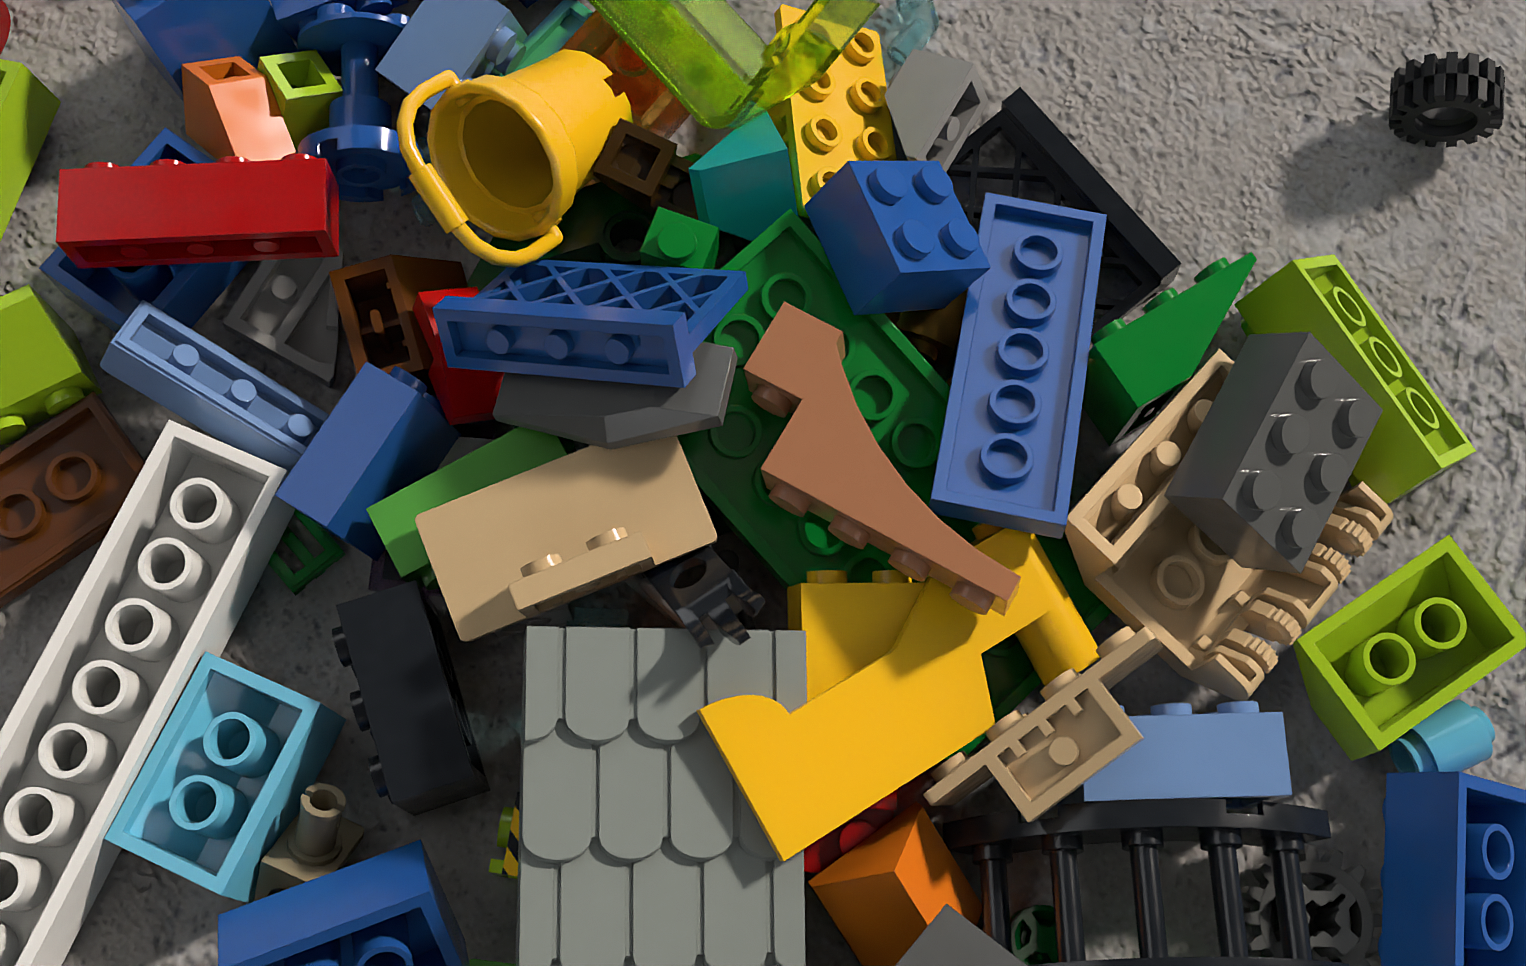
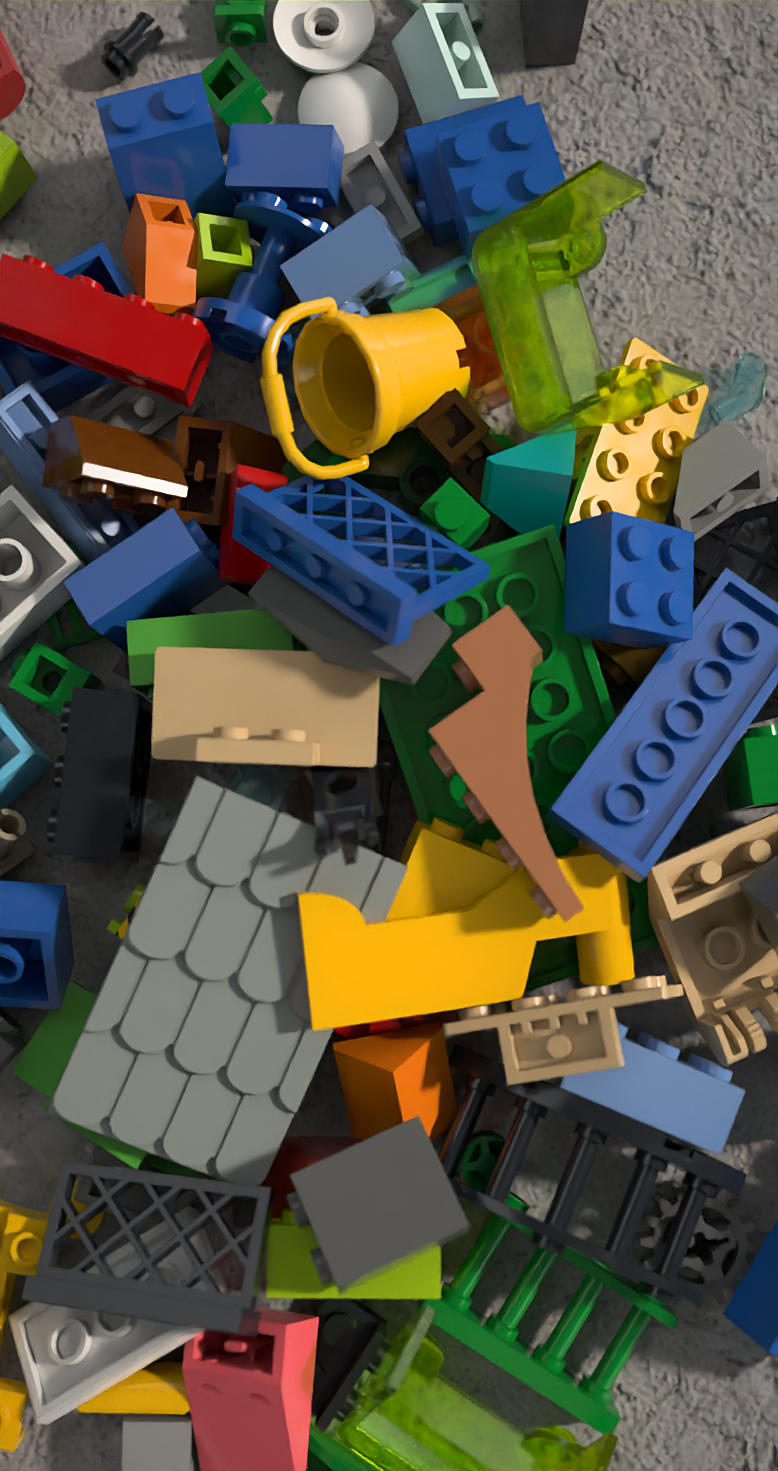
camera: 35 degrees right, 10 degrees up
(275, 353) = (111, 465): none -> reddish brown slope
(284, 608) = (35, 667): none -> green brick

